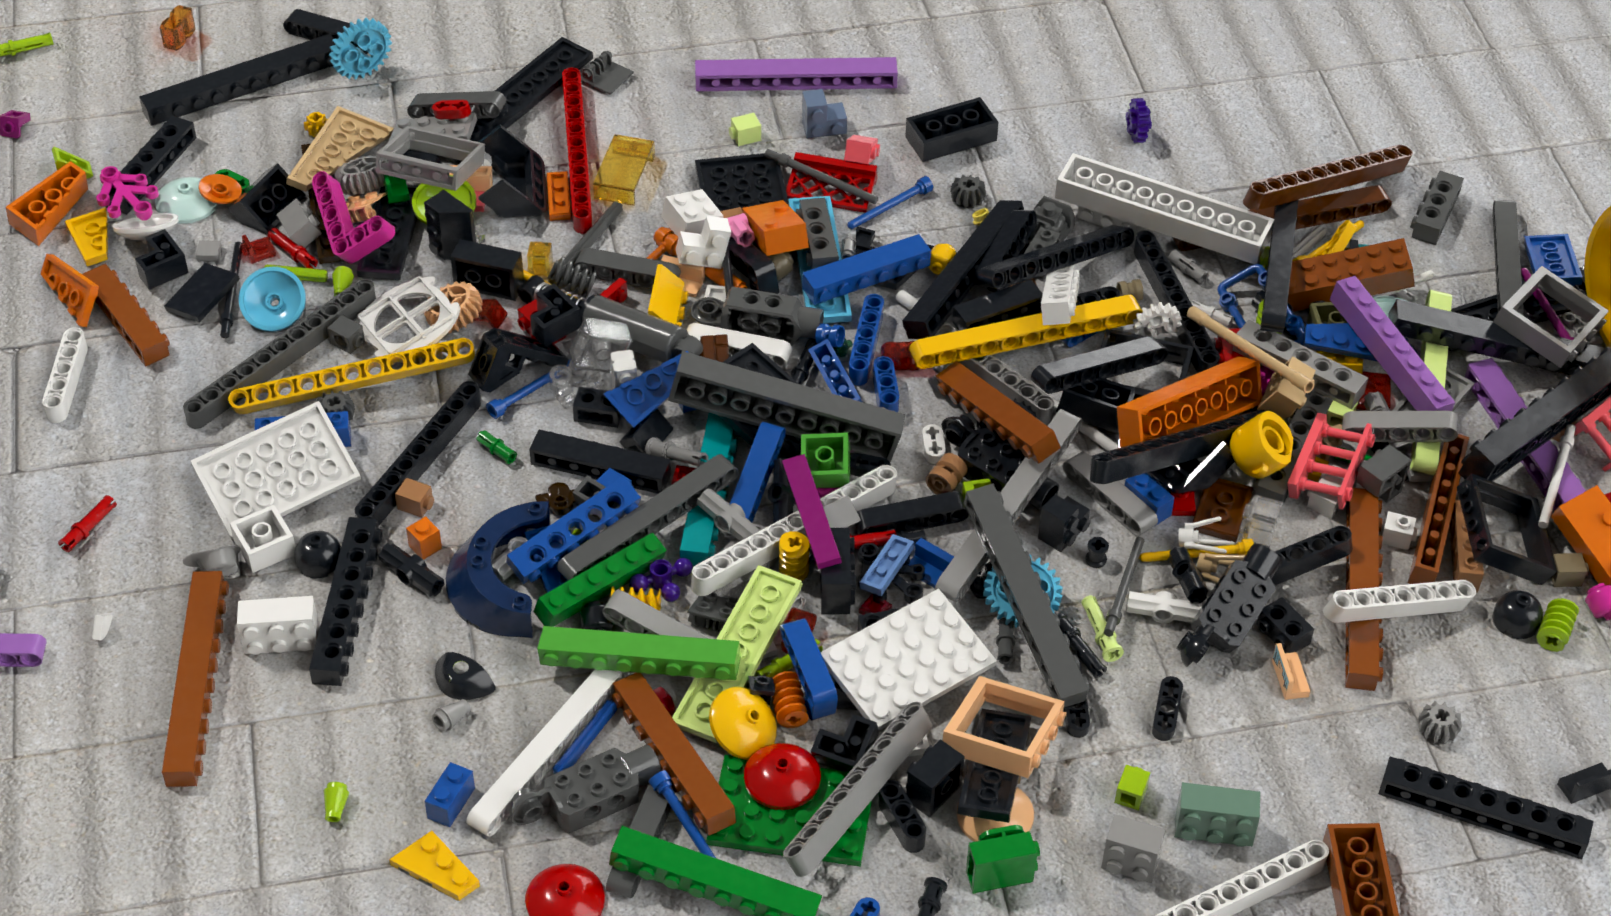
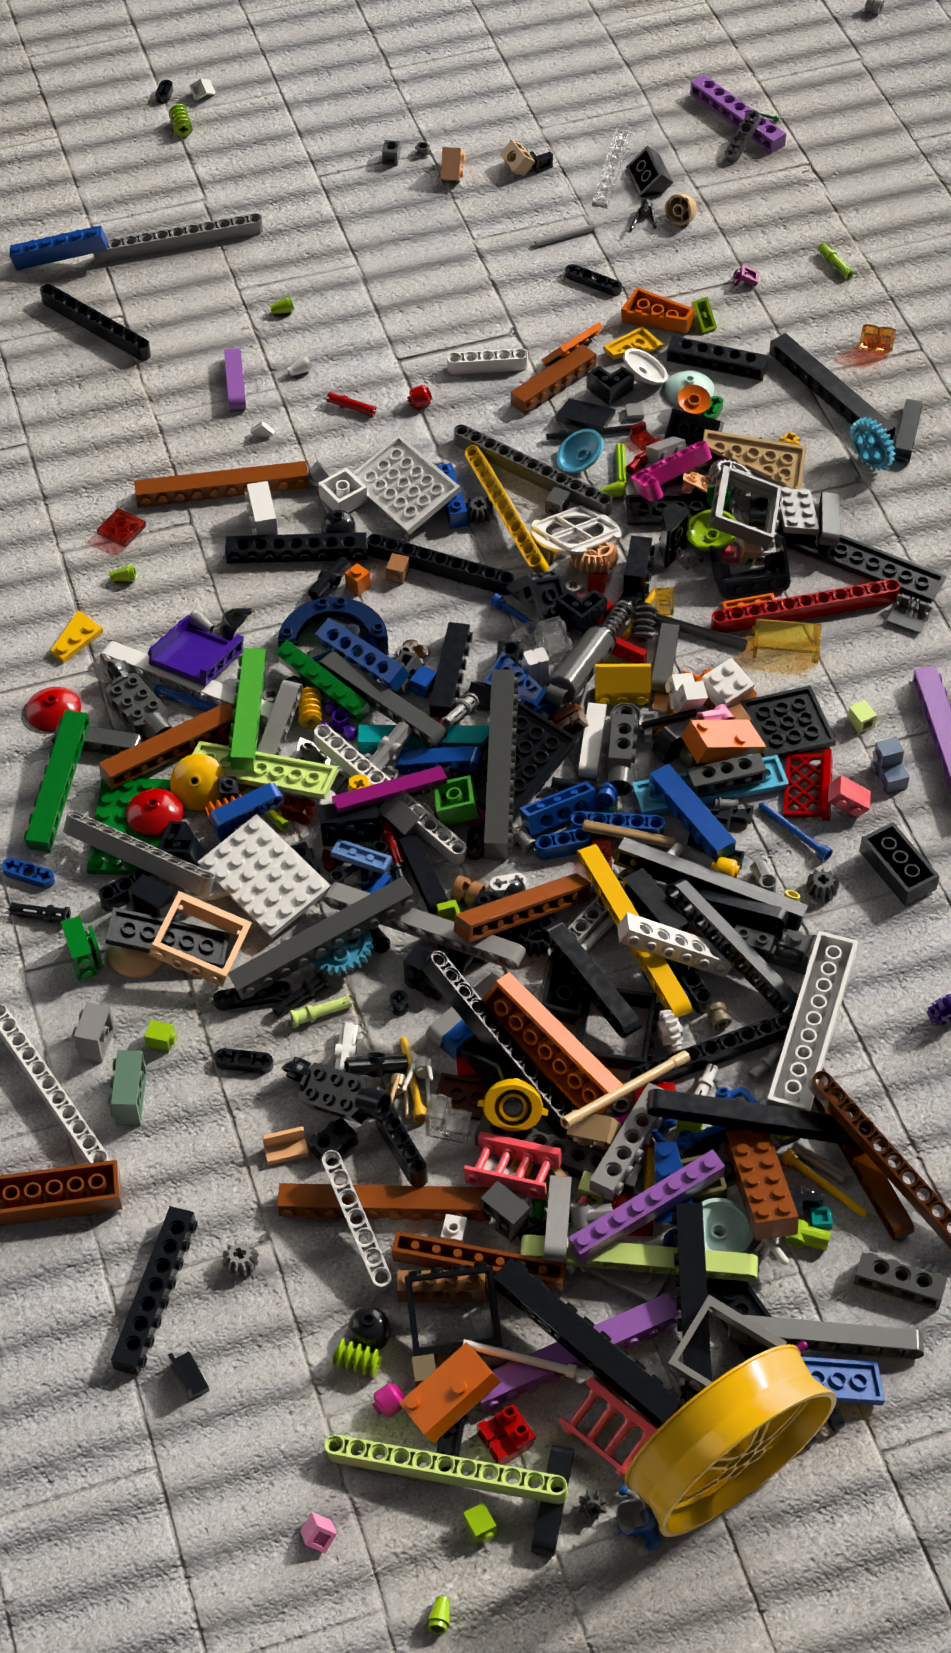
camera: 85 degrees right, 5 degrees up
(106, 448) = (420, 397): none -> red head
(110, 177) = (684, 335): dark pink plant -> none
(241, 801) = (121, 527): none -> clear red plate
(449, 794) = (129, 630): blue brick -> none
(451, 109) = (814, 512): red beam -> none
(496, 447) = (458, 608): green axle -> none
(517, 714) = (194, 652): none -> dark purple panel
(662, 783) = (135, 738): blue piece -> none
(786, 161) = (820, 746): dark grey bar -> none
(884, 327) = (621, 832): none -> tan axle
(954, 233) = (763, 875): none -> light grey piece
(1114, 614) = (324, 1012): dark grey bar -> none
(1340, 238) = (816, 1184): yellow beam -> none

